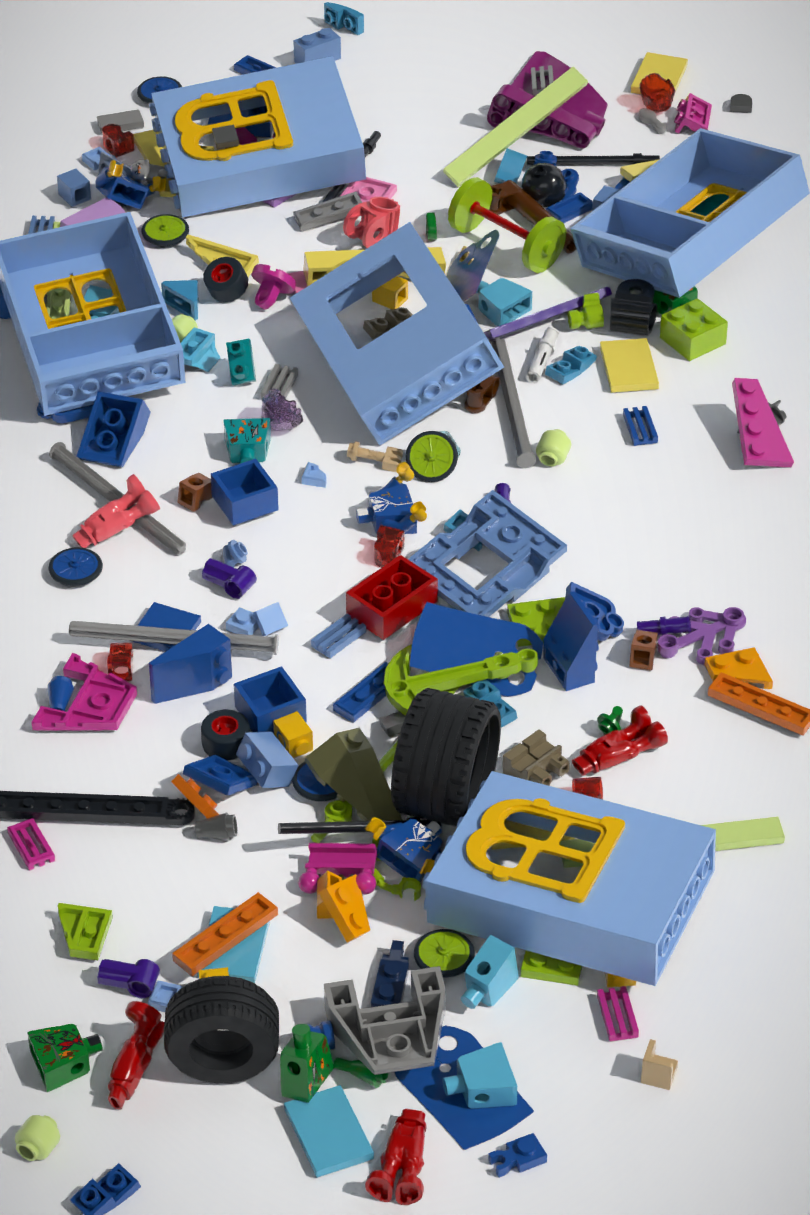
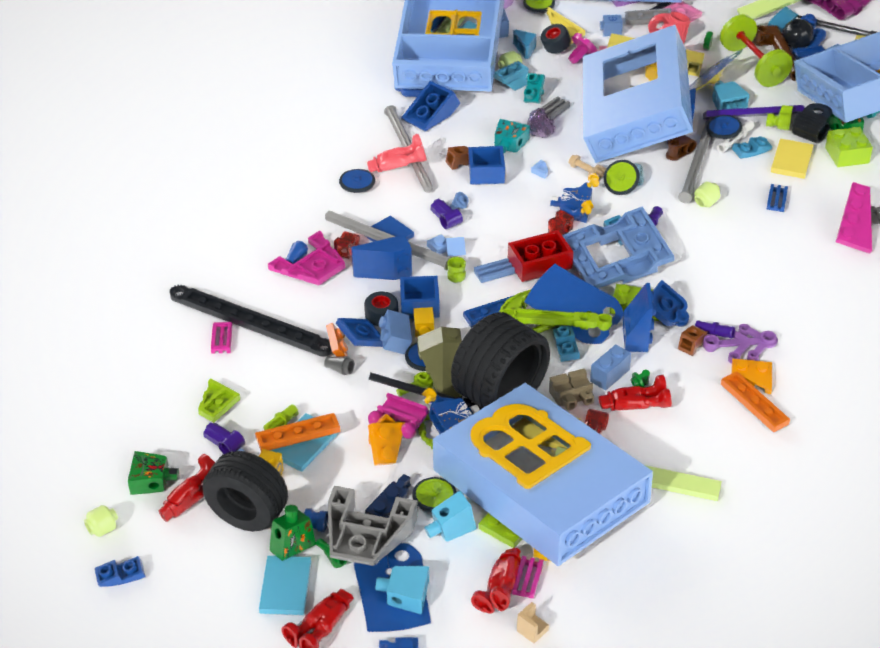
camera: 25 degrees right, 0 degrees up
(187, 923) = (282, 418): none -> lime axle
(288, 238) = (611, 24): none -> medium blue brick
(291, 650) = (456, 269): none -> lime wheel
(524, 346) = (724, 127): none -> blue wheel
(566, 717) = (610, 367): none -> medium blue brick
(592, 1033) = (499, 583): none -> red piece

